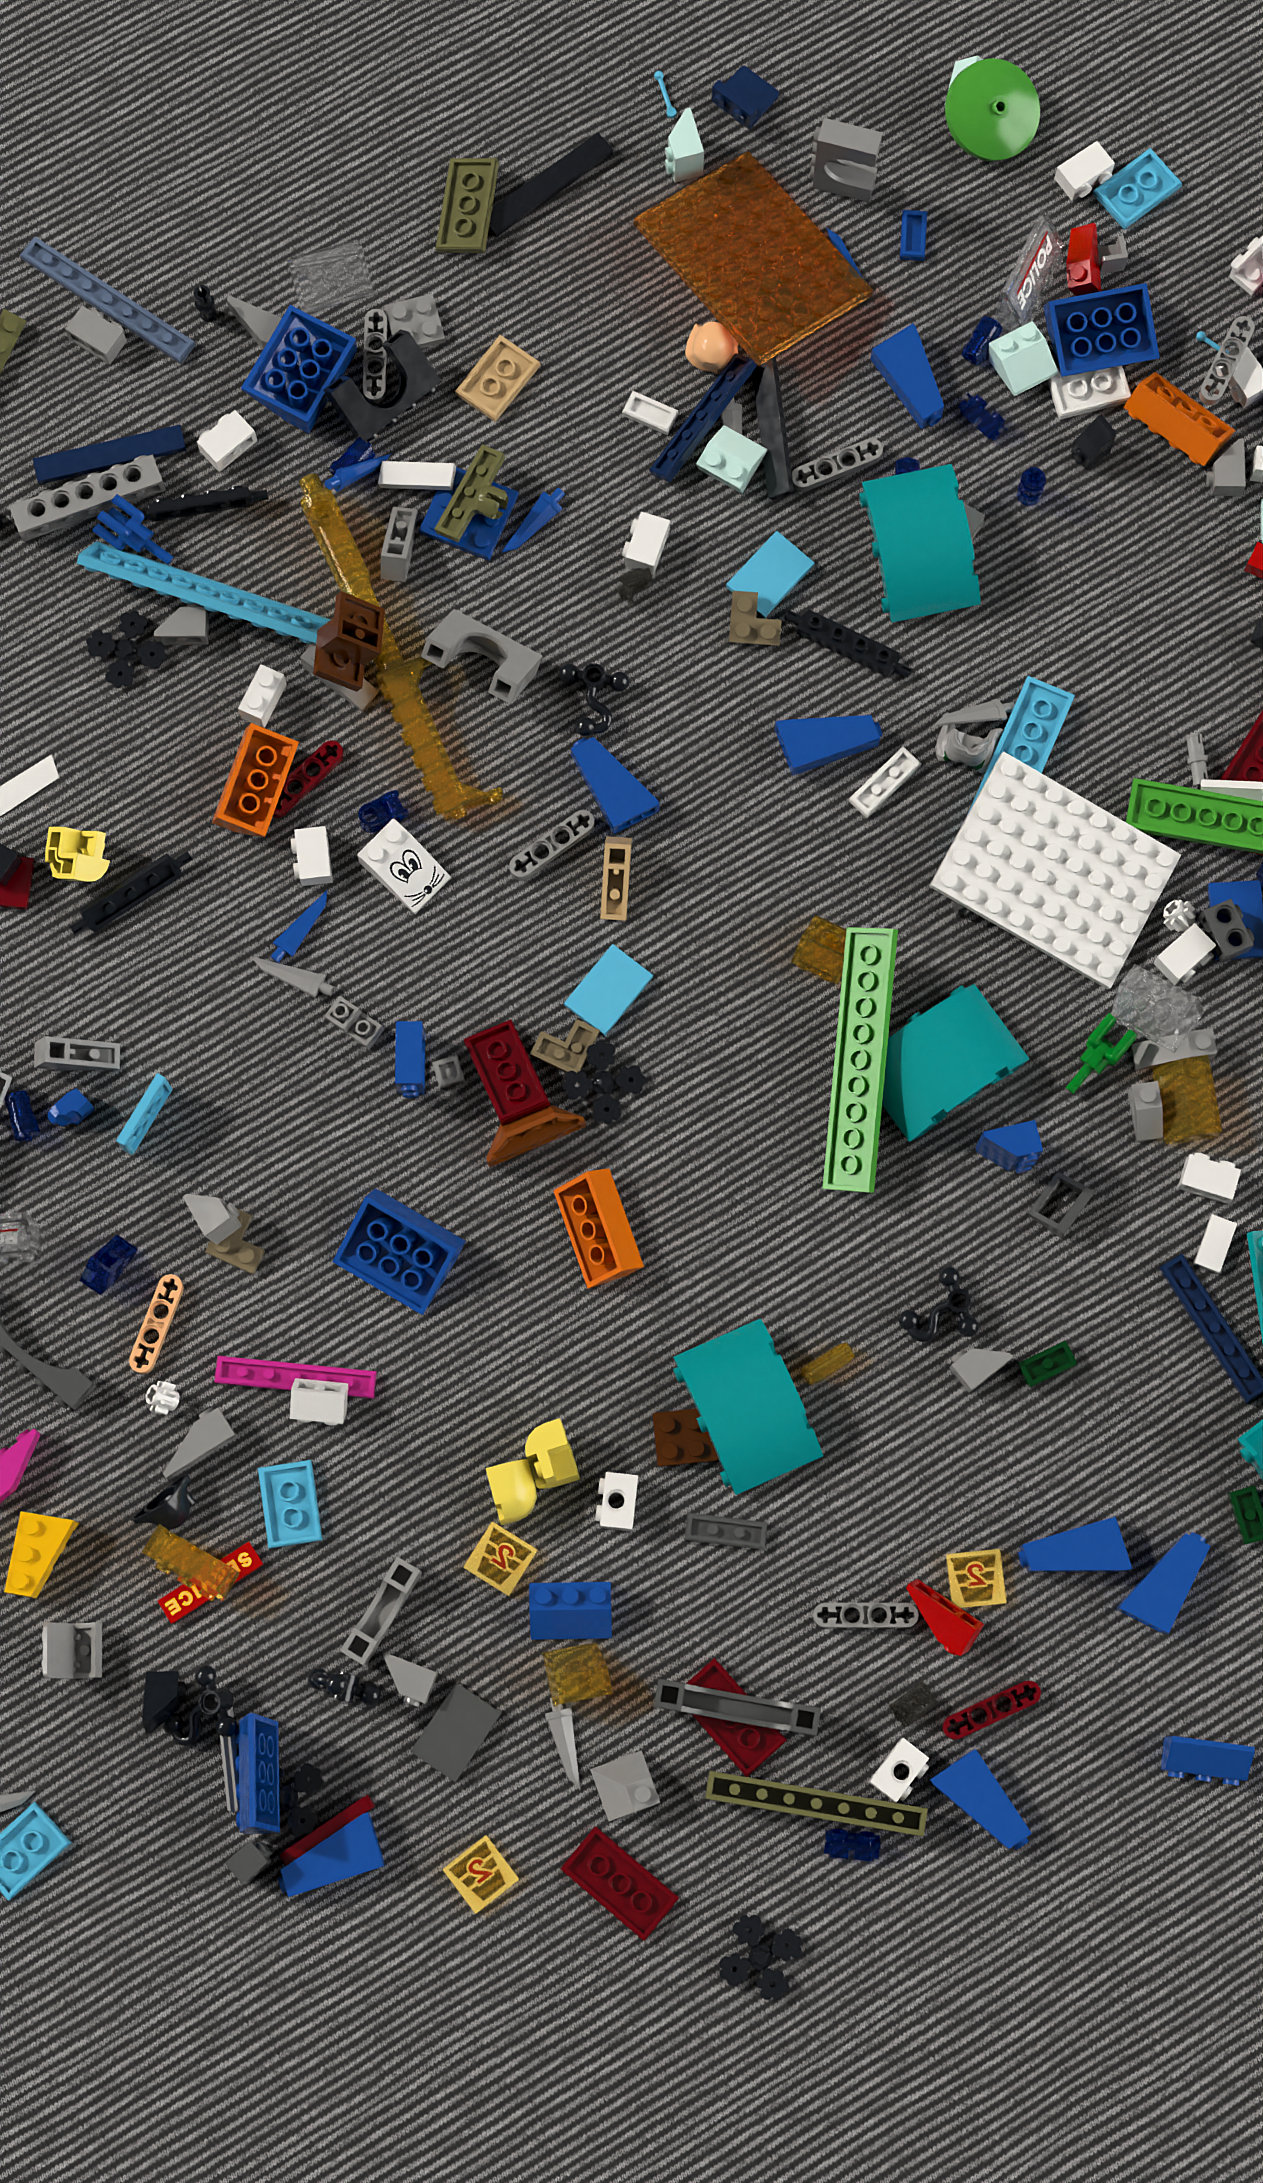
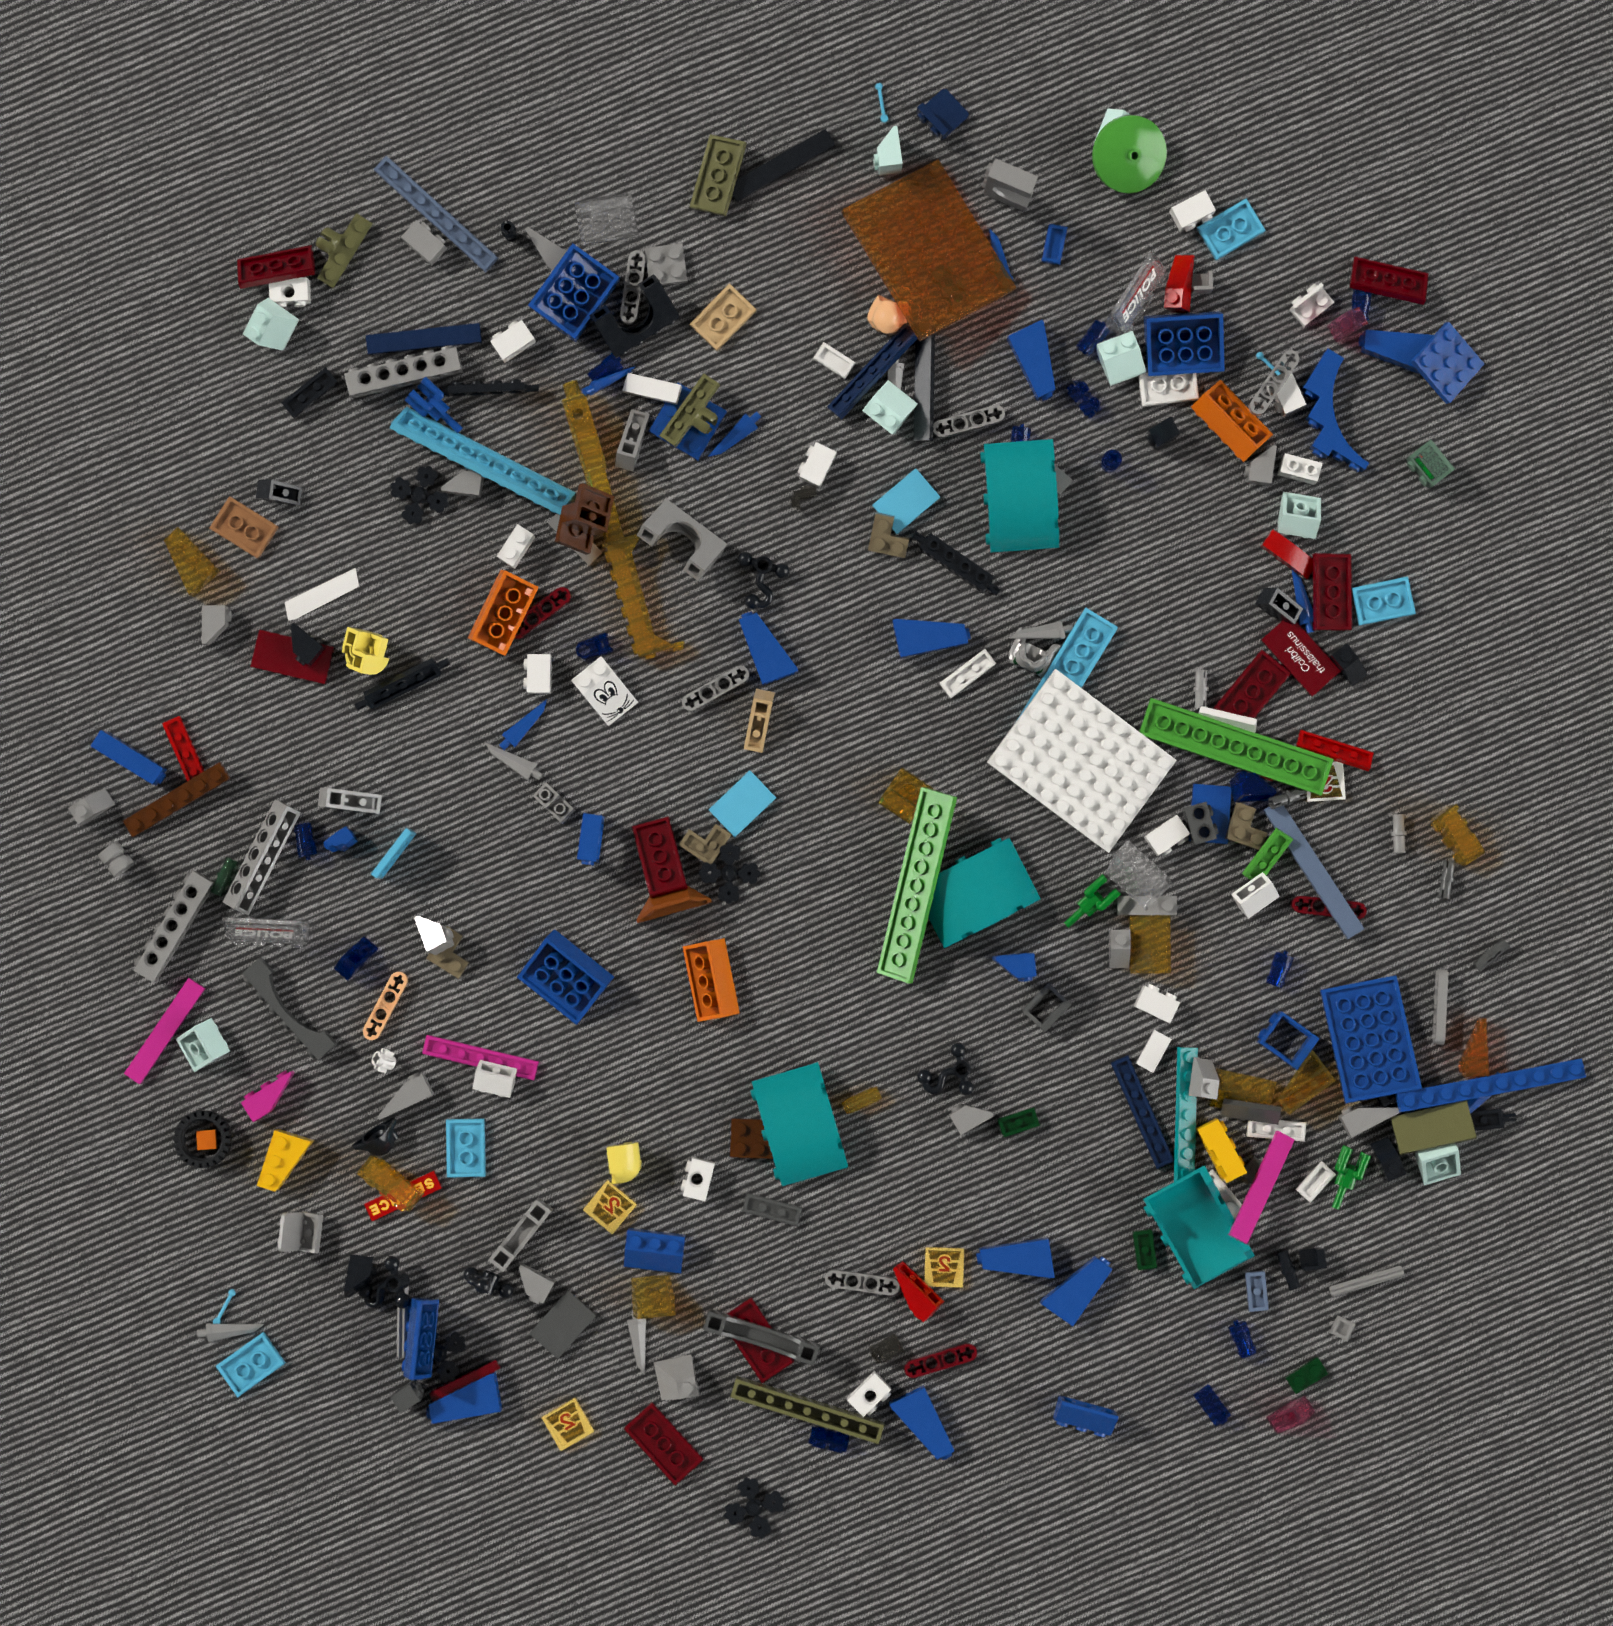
camera: 10 degrees right, 10 degrees up
(448, 1071) = (617, 848): light grey tile -> none
(551, 1456) = (655, 1141): light yellow brick -> none
(1179, 915) = (1167, 806): white gear -> none

